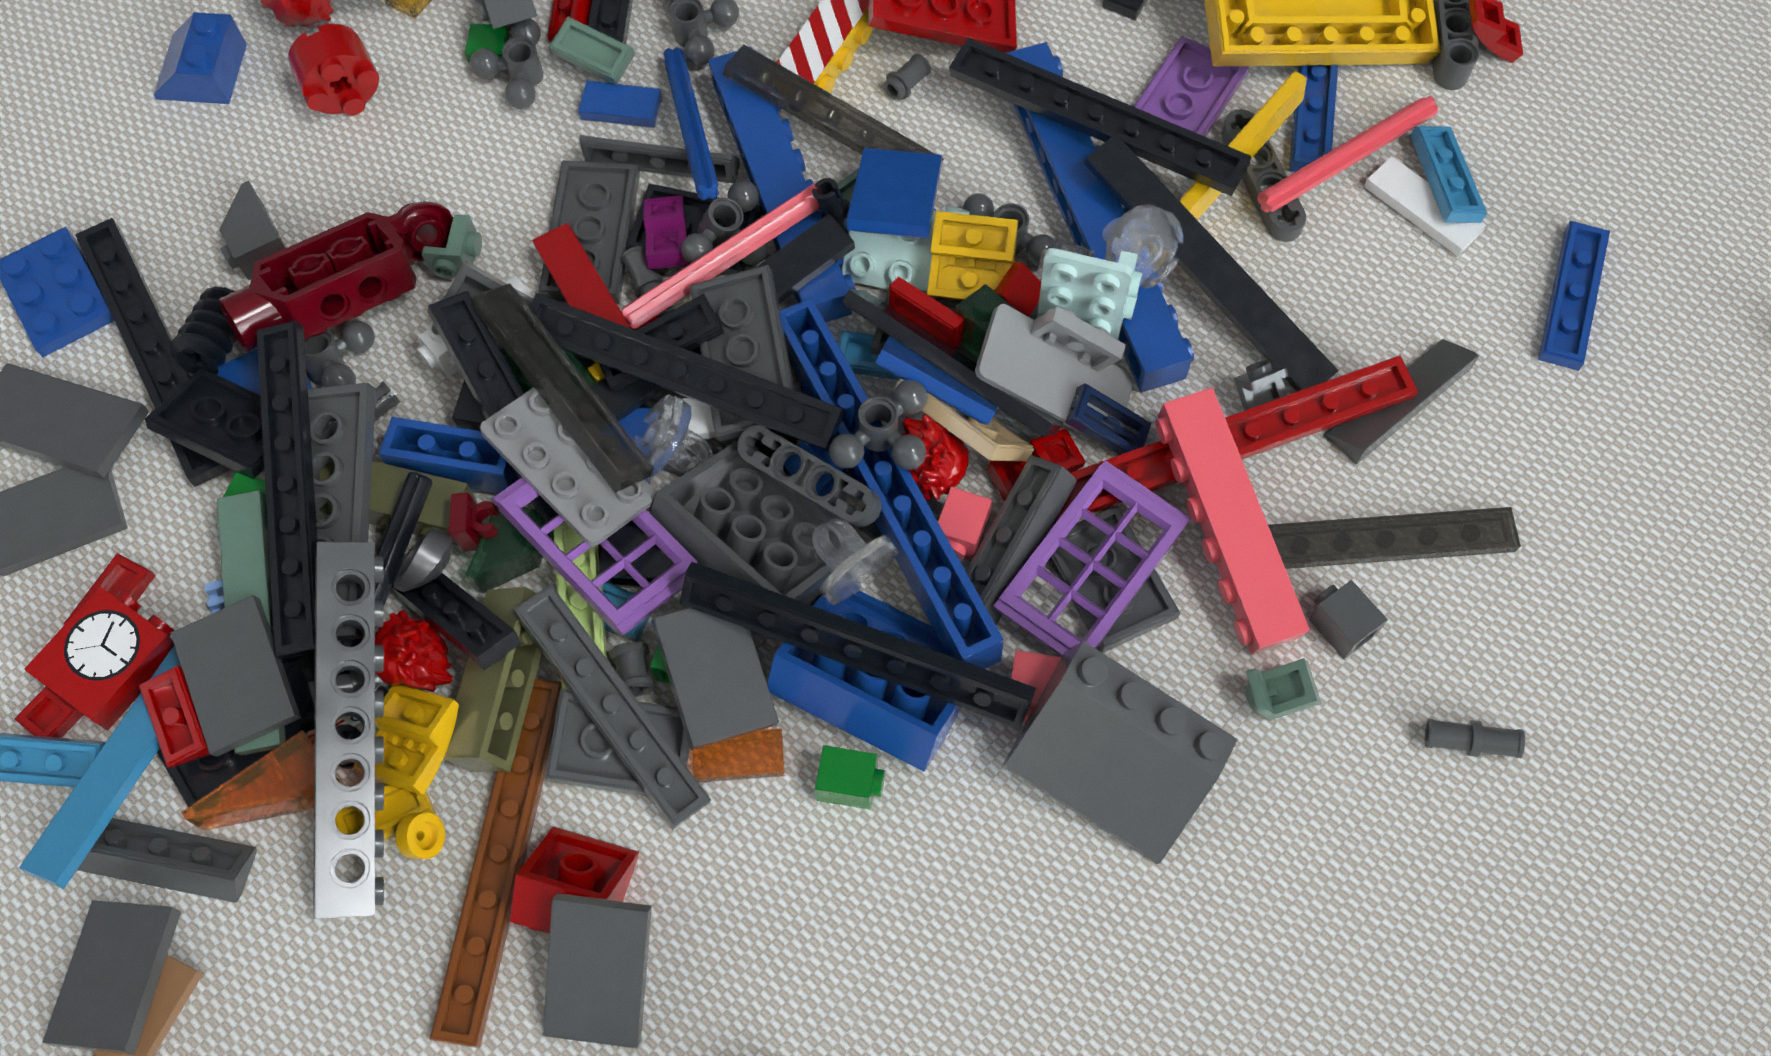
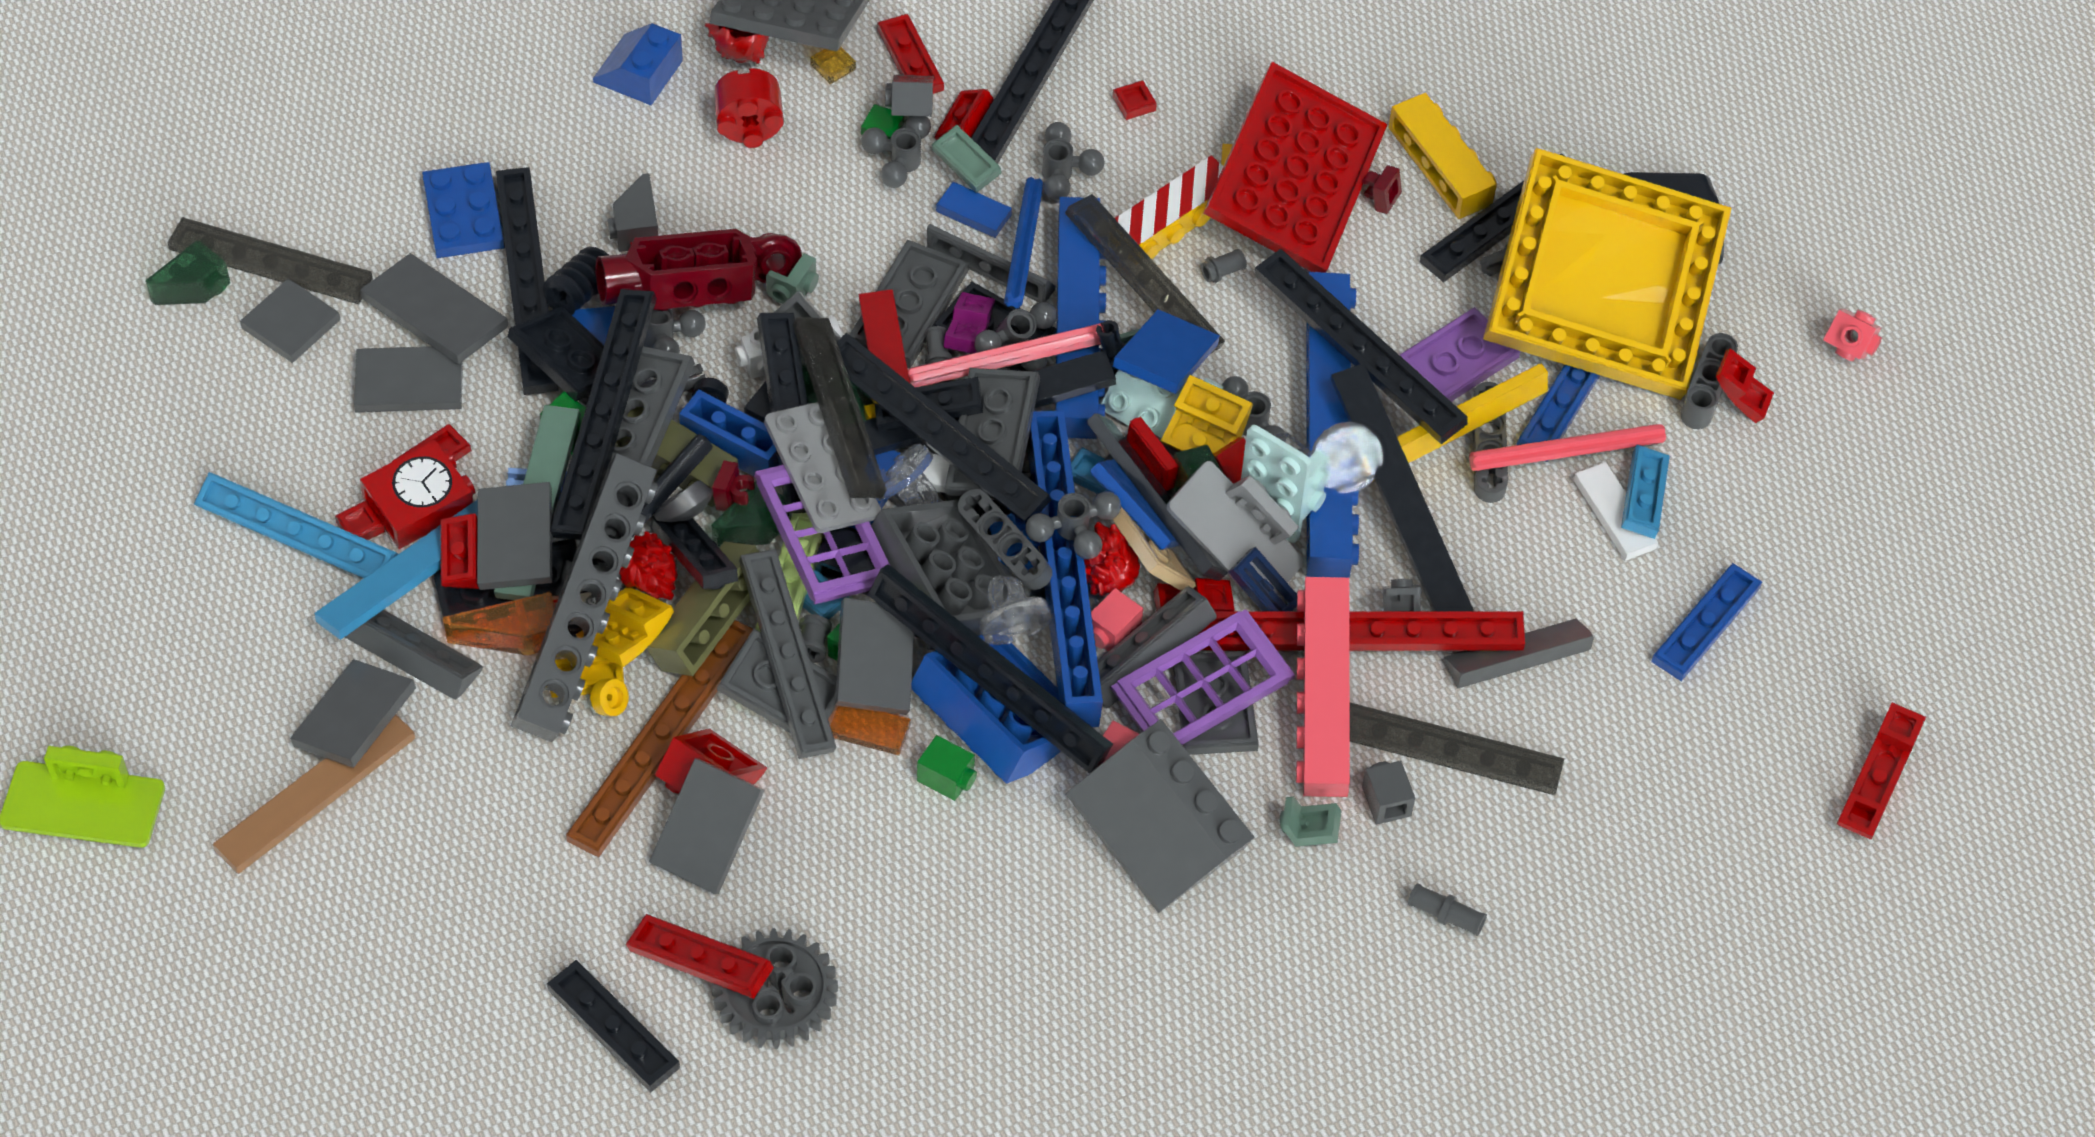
camera: 15 degrees right, 10 degrees down
(408, 407) = (712, 387): none -> black tile

